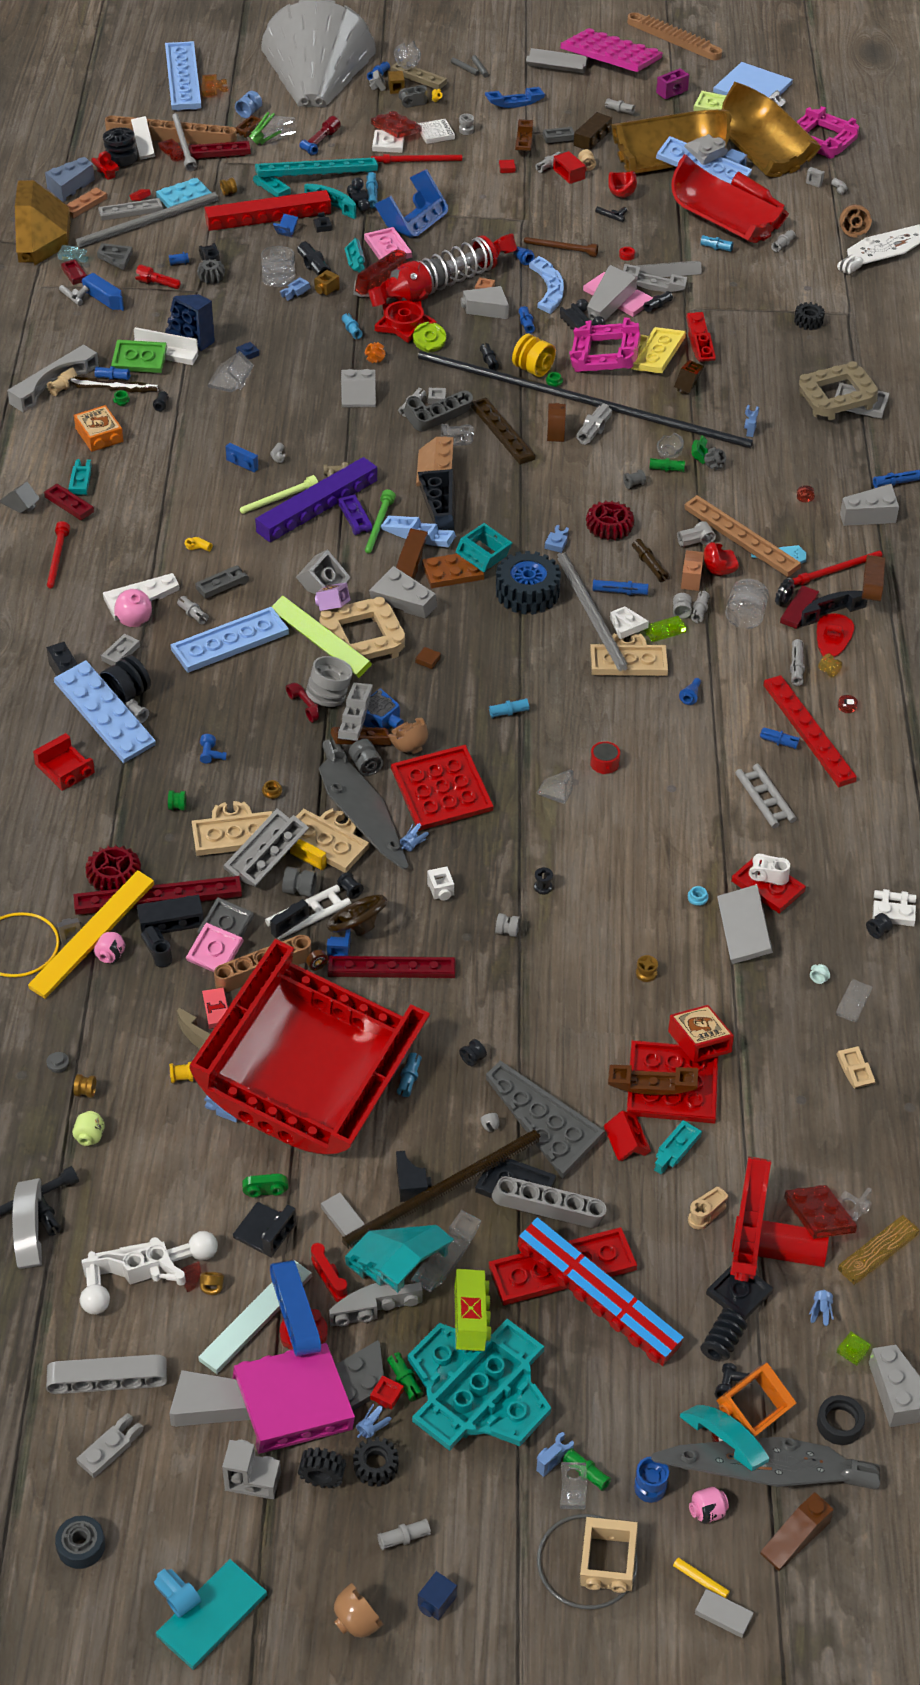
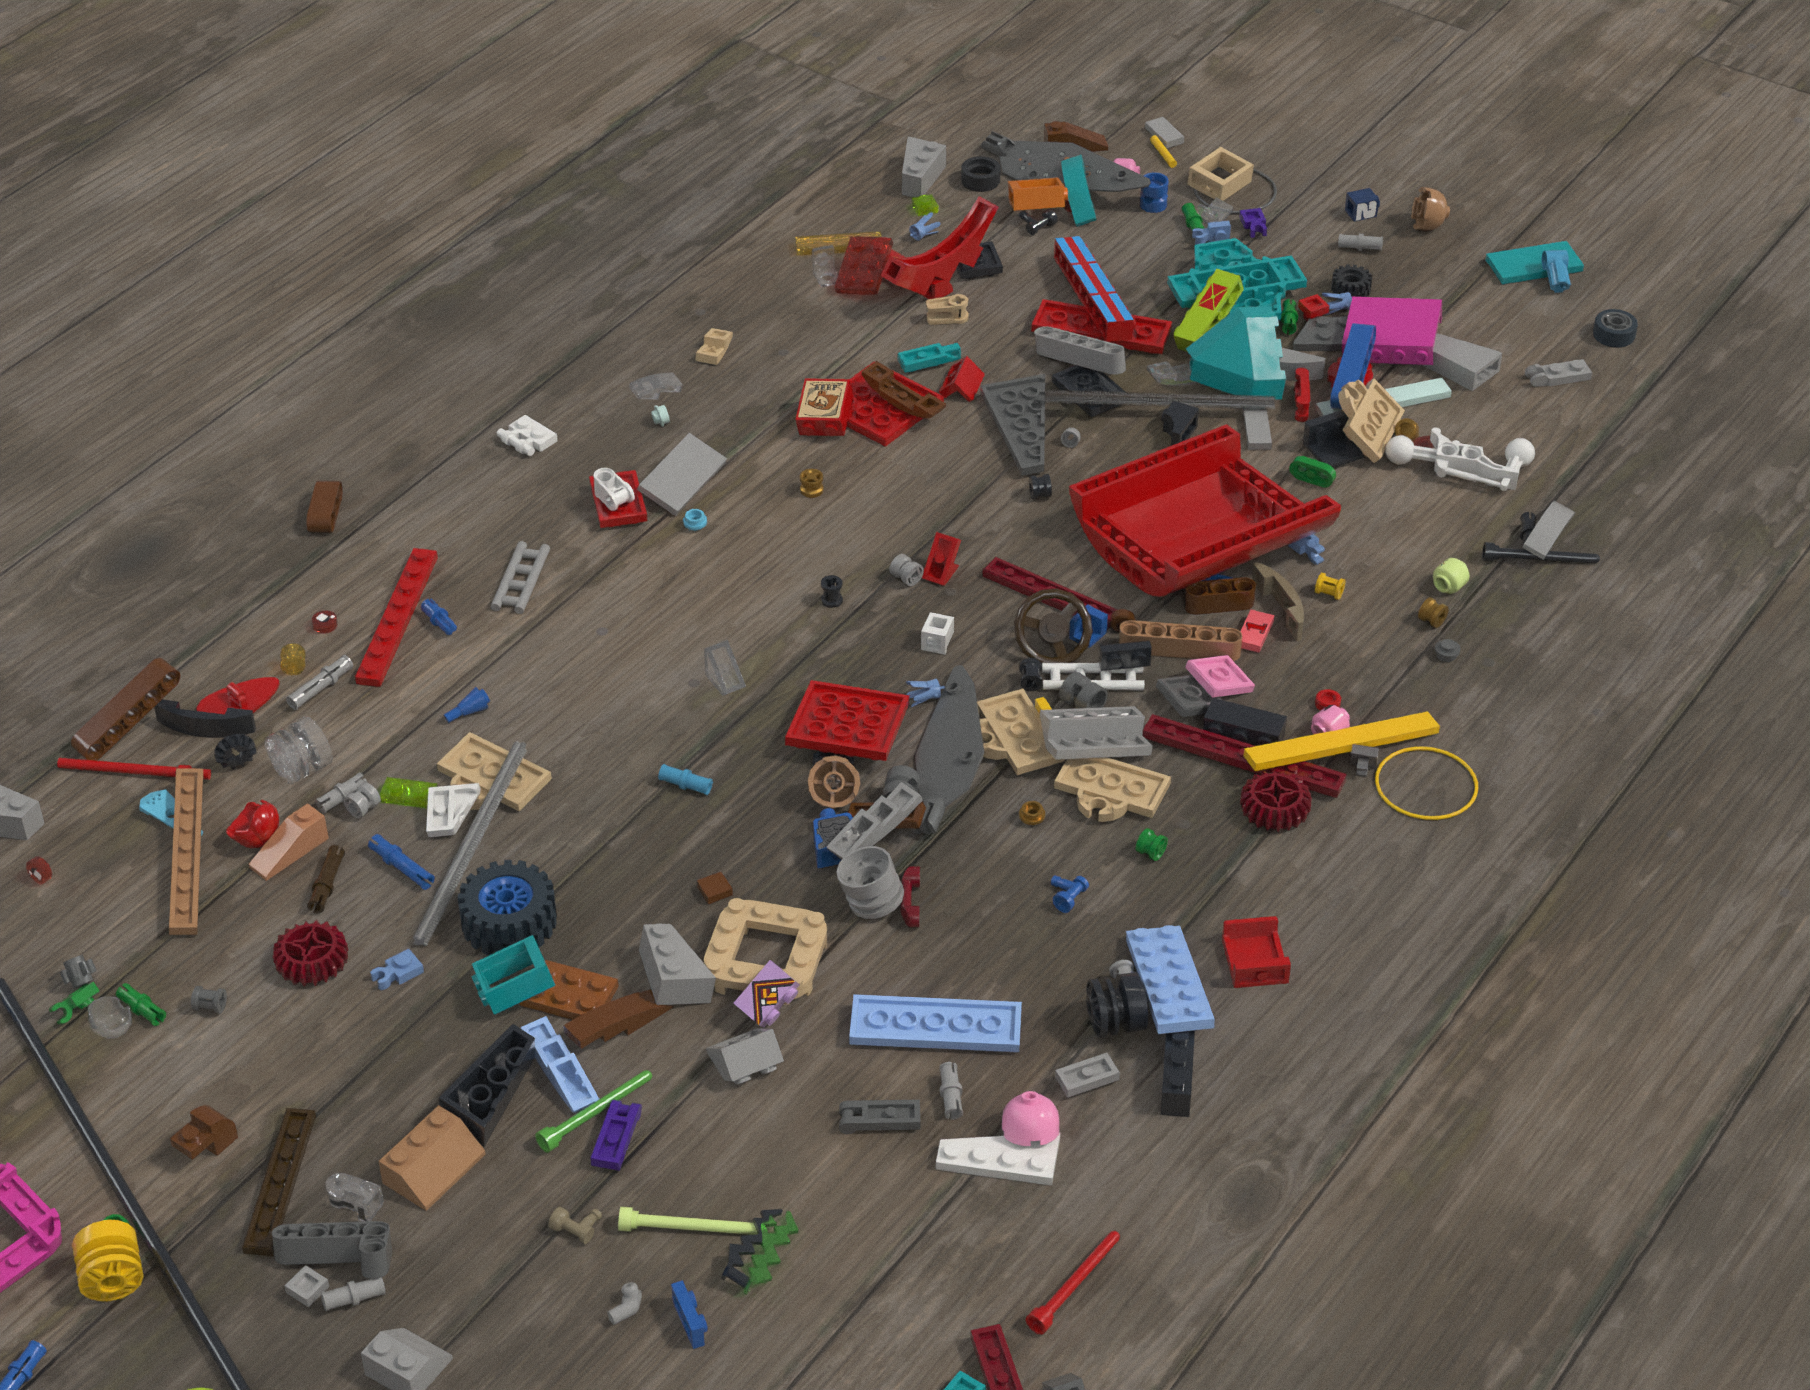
camera: 145 degrees left, 5 degrees down
(106, 1374) = (1537, 408): light grey beam -> none
(125, 974) = (1327, 697): none -> red tile
(157, 946) = (1279, 697): black piece -> none
(197, 543) = (863, 1201): yellow arm -> none
(231, 504) = (760, 1273): none -> piece
(245, 1257) = (1371, 416): none -> tan plate
(248, 1473) = (1461, 303): light grey brick -> none
(316, 499) = (646, 1181): dark purple brick -> none
(320, 635) = (828, 954): tile -> none
(322, 1467) = (1404, 276): black tyre -> none
(488, 947) = (941, 559): none -> red slope
(489, 356) = (153, 1326): black pin -> none
(530, 1505) = (1254, 220): none -> dark purple plate
(594, 424) = (154, 1114): light grey piece -> none
(605, 757) = (641, 678): piece -> none
(700, 533) = (227, 879): light grey piece -> none
(724, 1335) = (1018, 237): black piece -> none
(802, 599) = (204, 751): dark red tile -> none
(879, 925) = (563, 422): black wheel -> none

